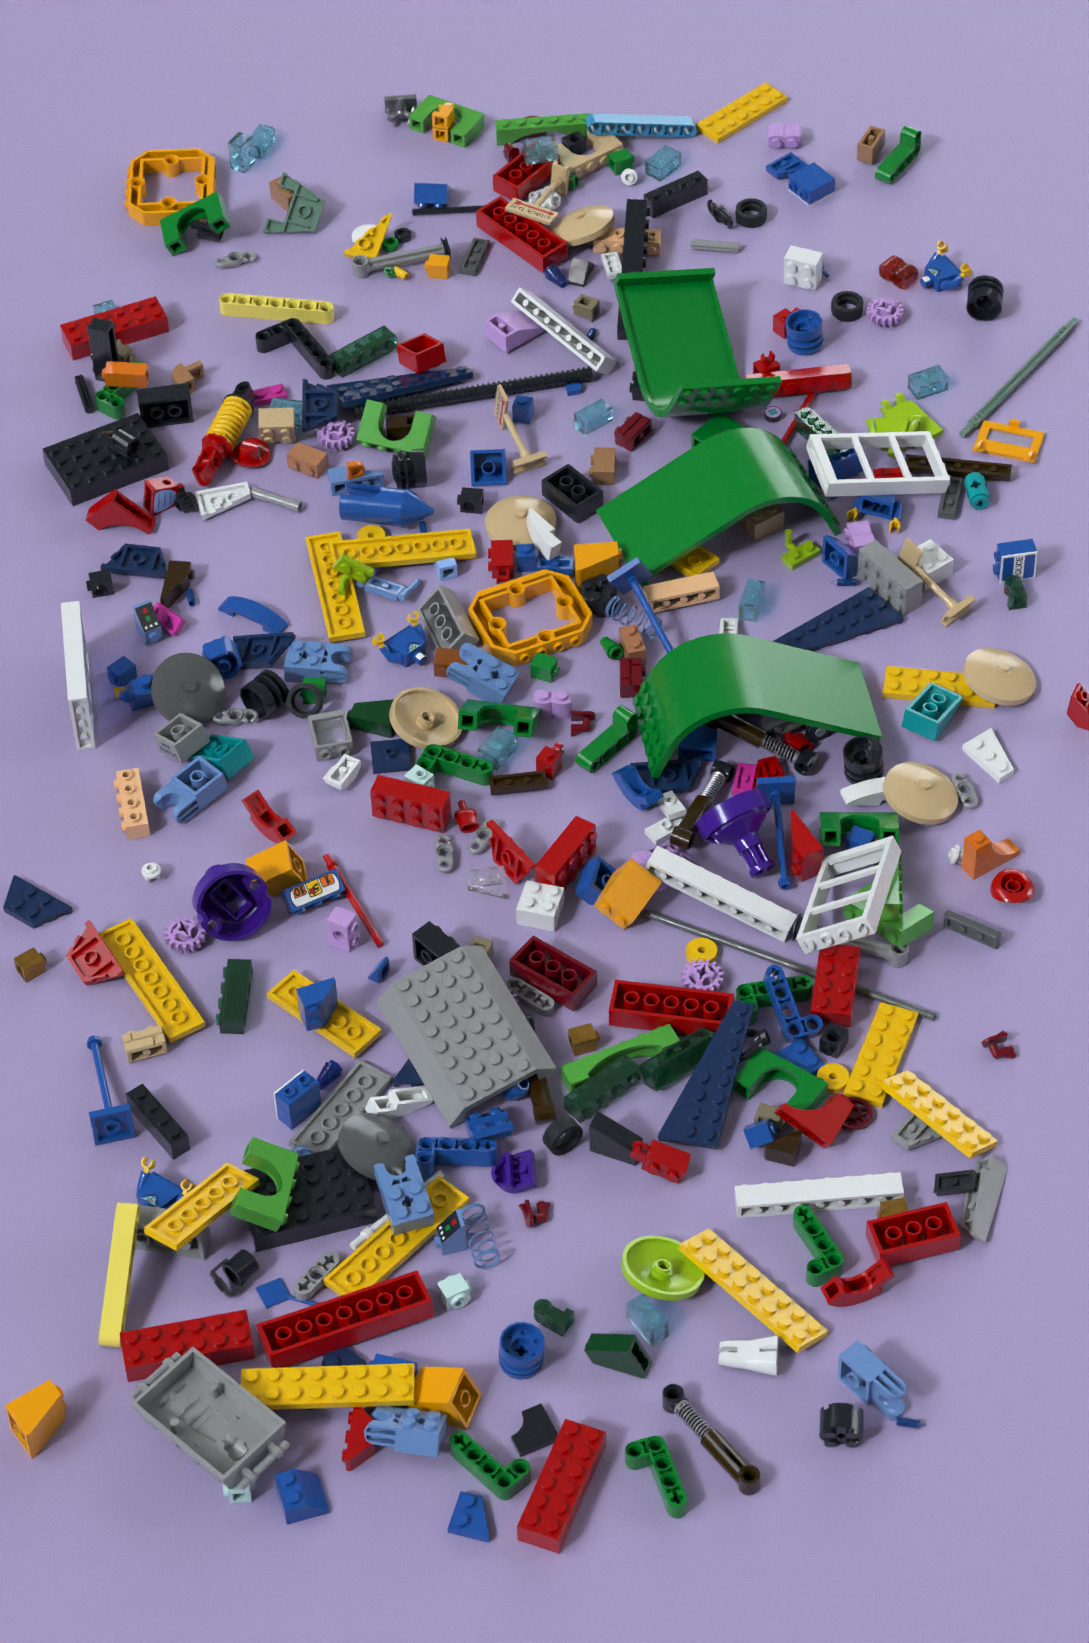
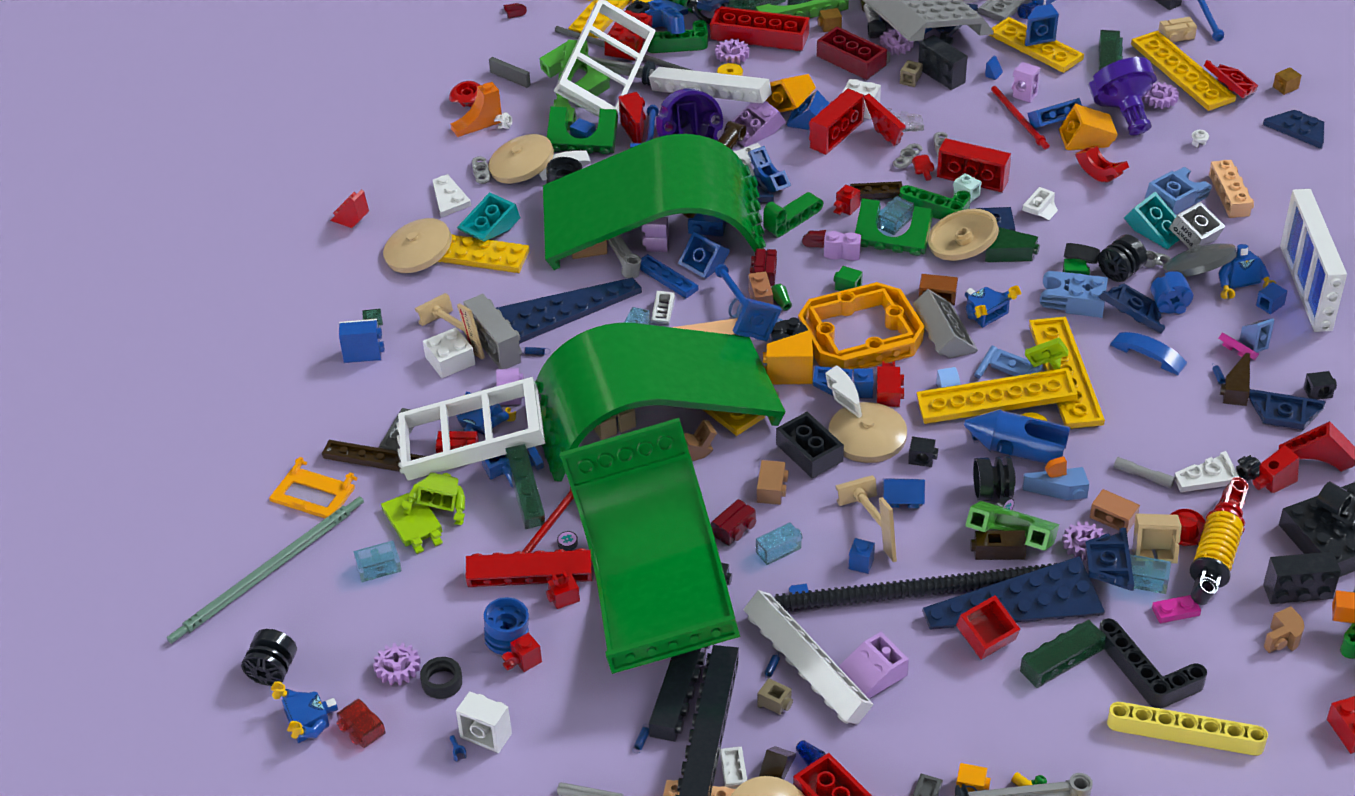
camera: 175 degrees left, 5 degrees down
(330, 734) = (1053, 232): window -> none
(484, 674) = (907, 261): medium blue brick -> none
(839, 557) = (531, 355): blue slope -> none
(977, 491) = (370, 427): teal piece -> none

